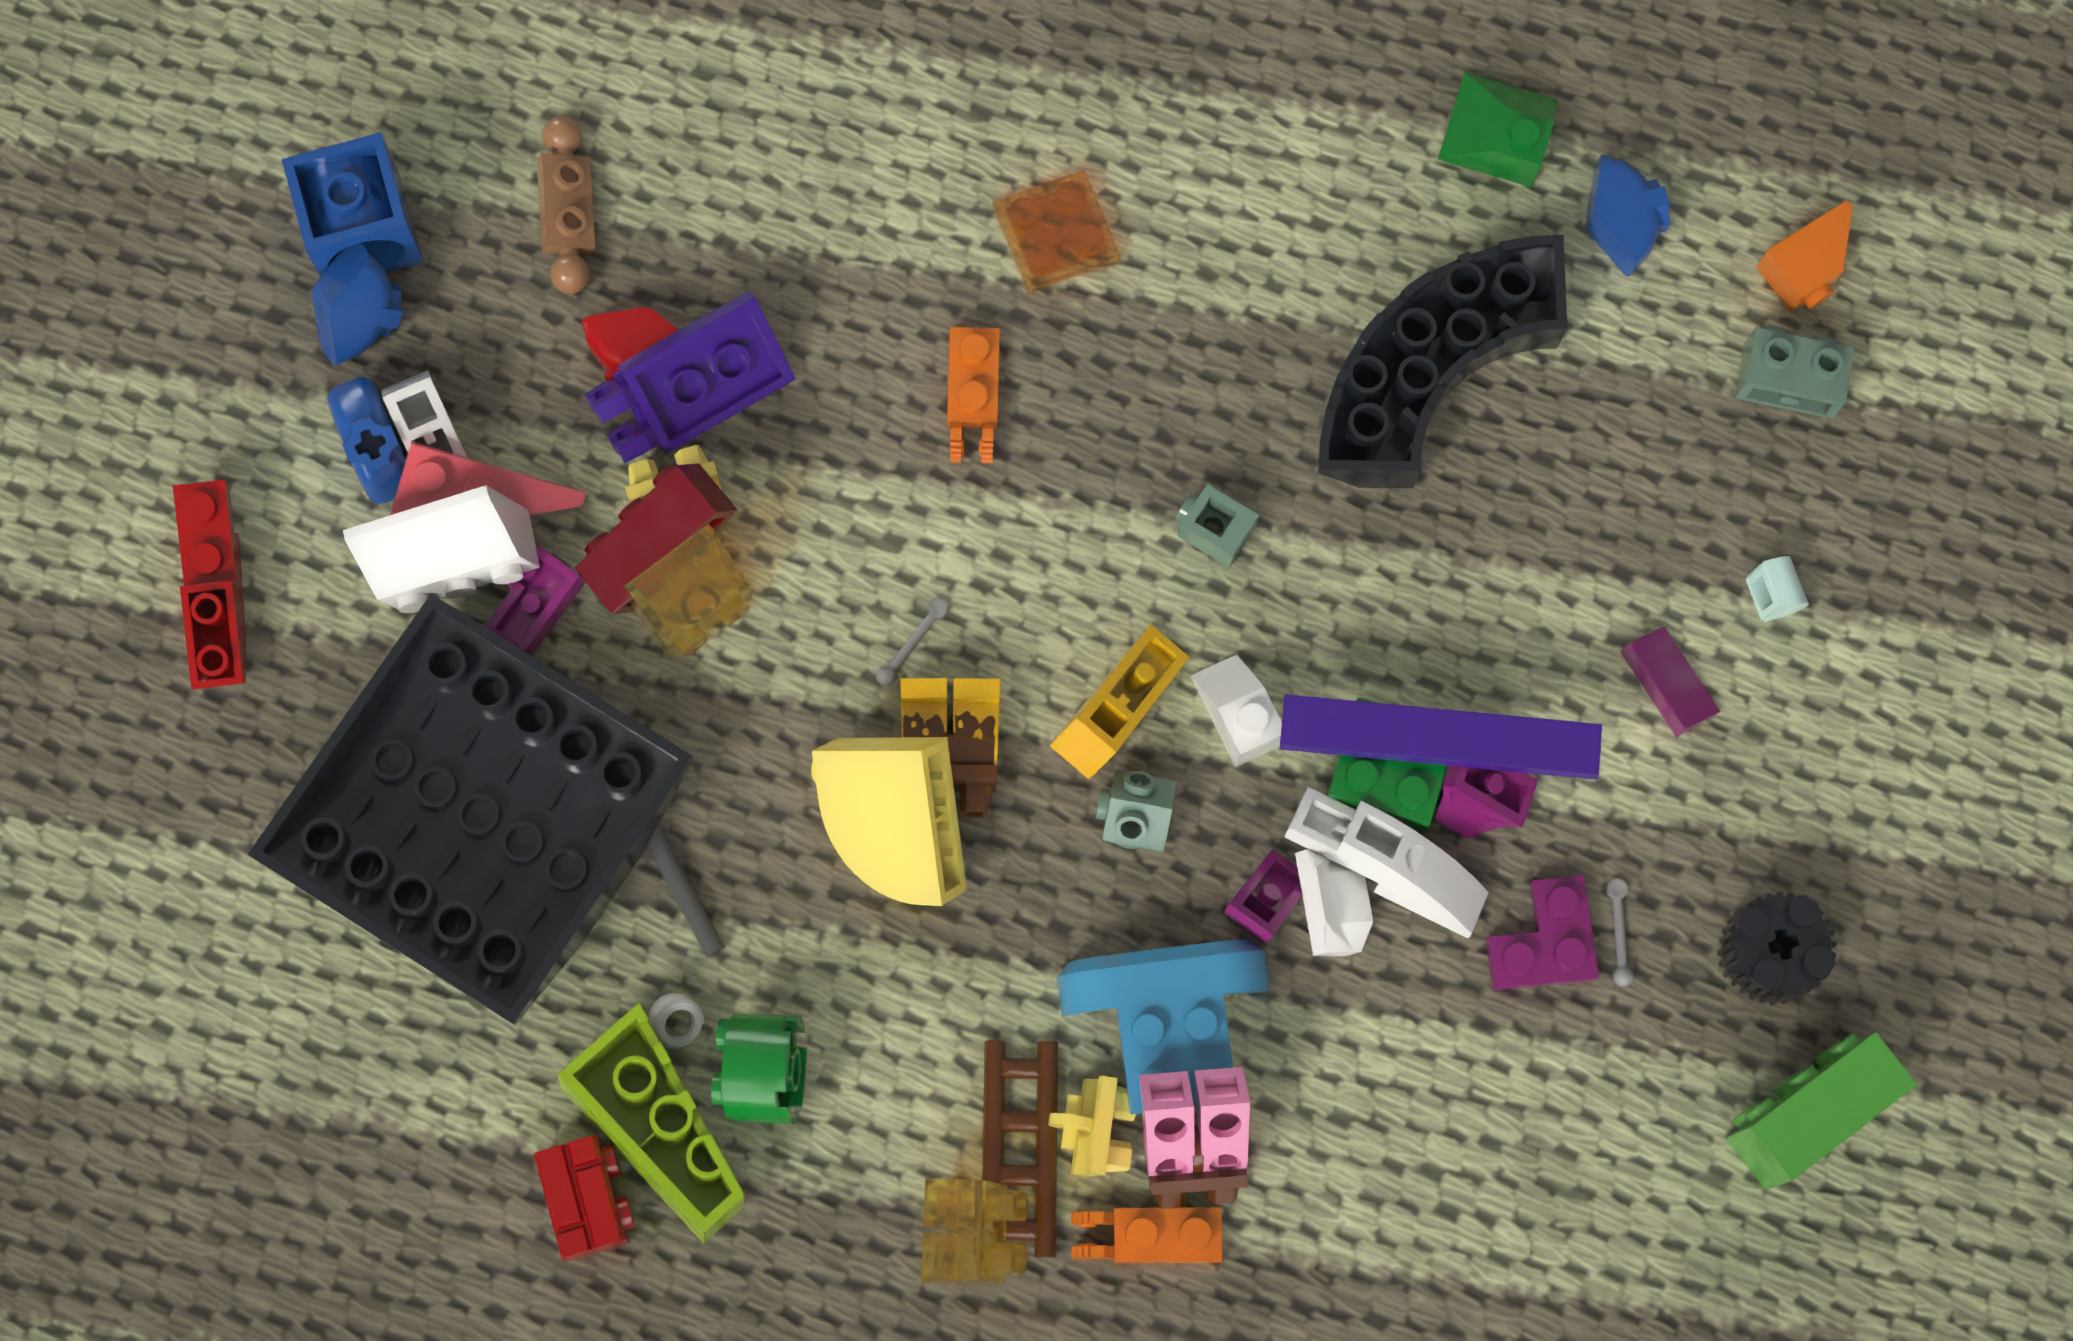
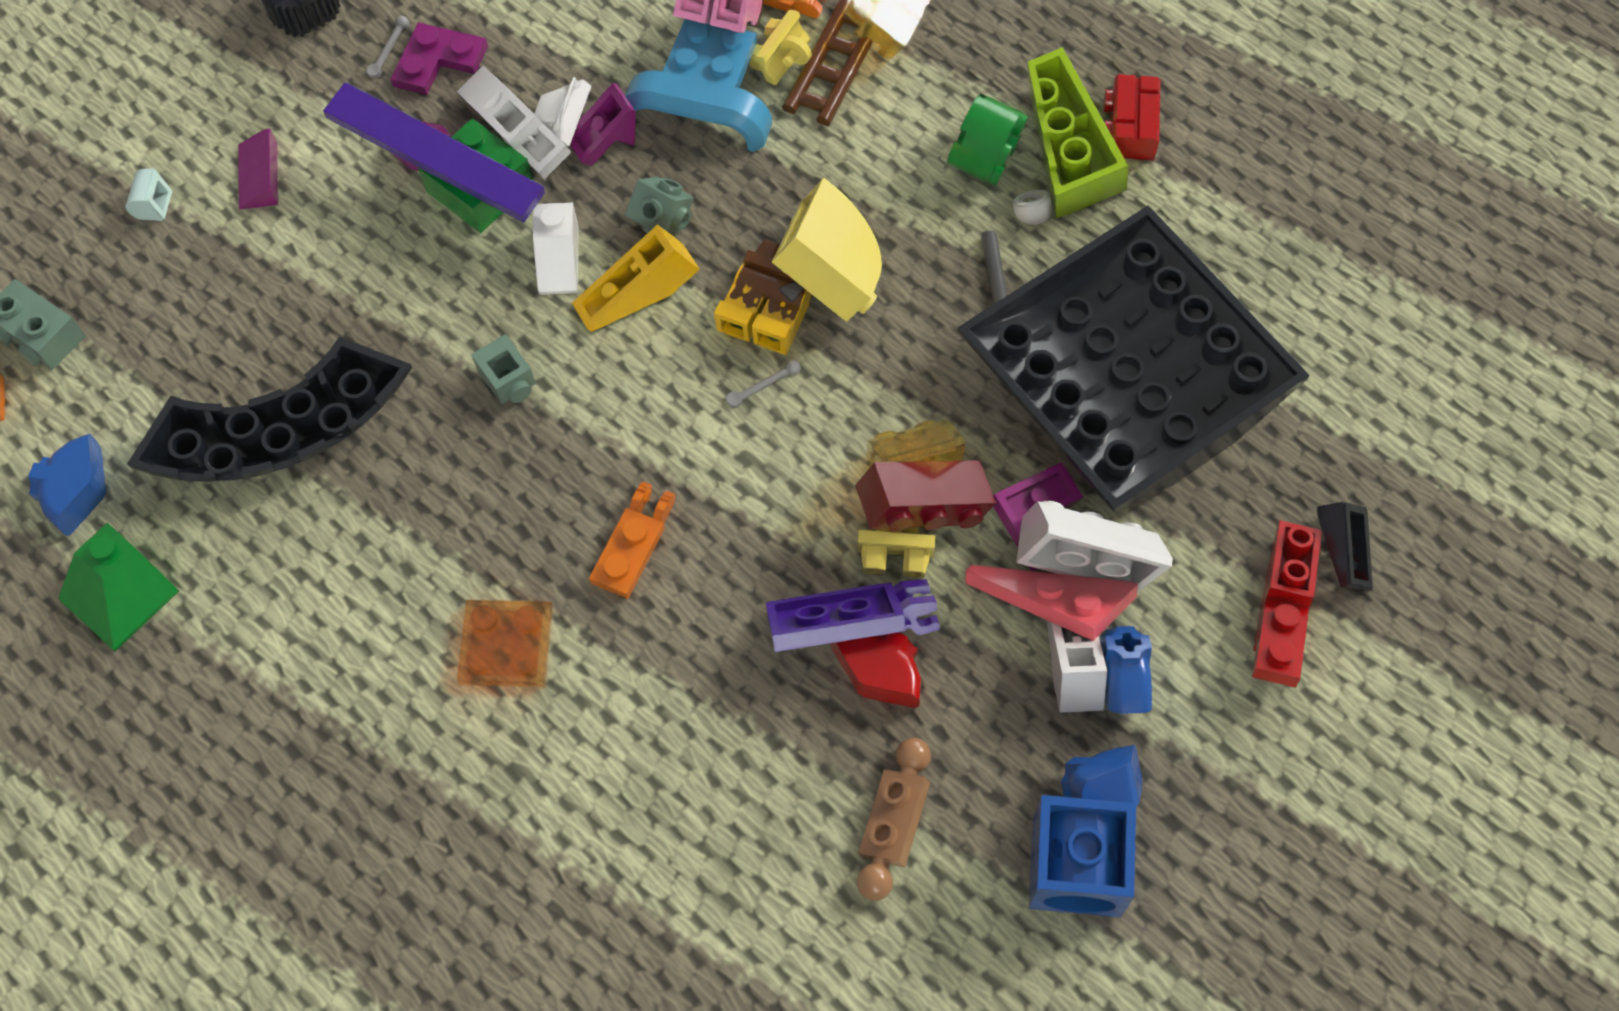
camera: 150 degrees left, 10 degrees down
(159, 689) = (1348, 543): none -> black slope

